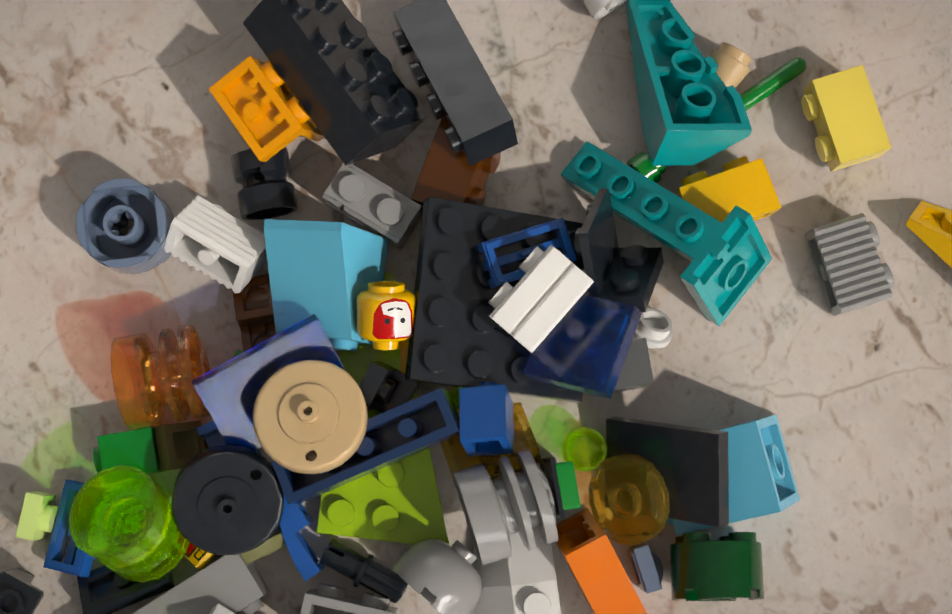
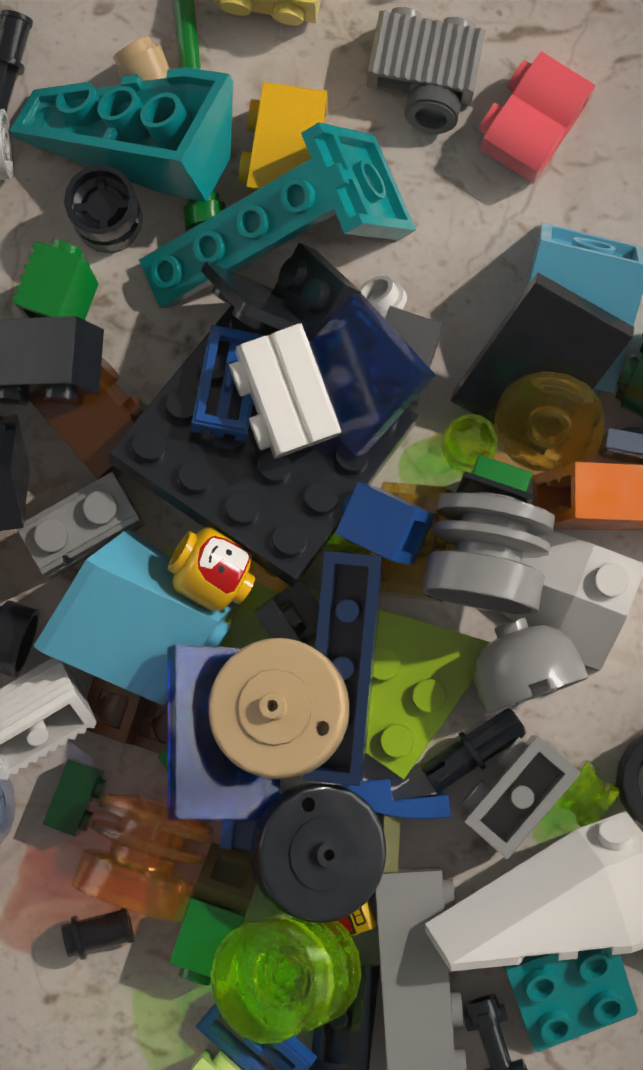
camera: 55 degrees left, 0 degrees up
(93, 373) = (97, 932): none -> black pin
(180, 305) = (74, 797): none -> dark green piece
(532, 93) = (56, 282): none -> green brick
(608, 95) = (103, 208): none -> black wheel
(813, 290) = (432, 109): none -> dark grey tile
(850, 368) = (536, 116): none -> coral brick

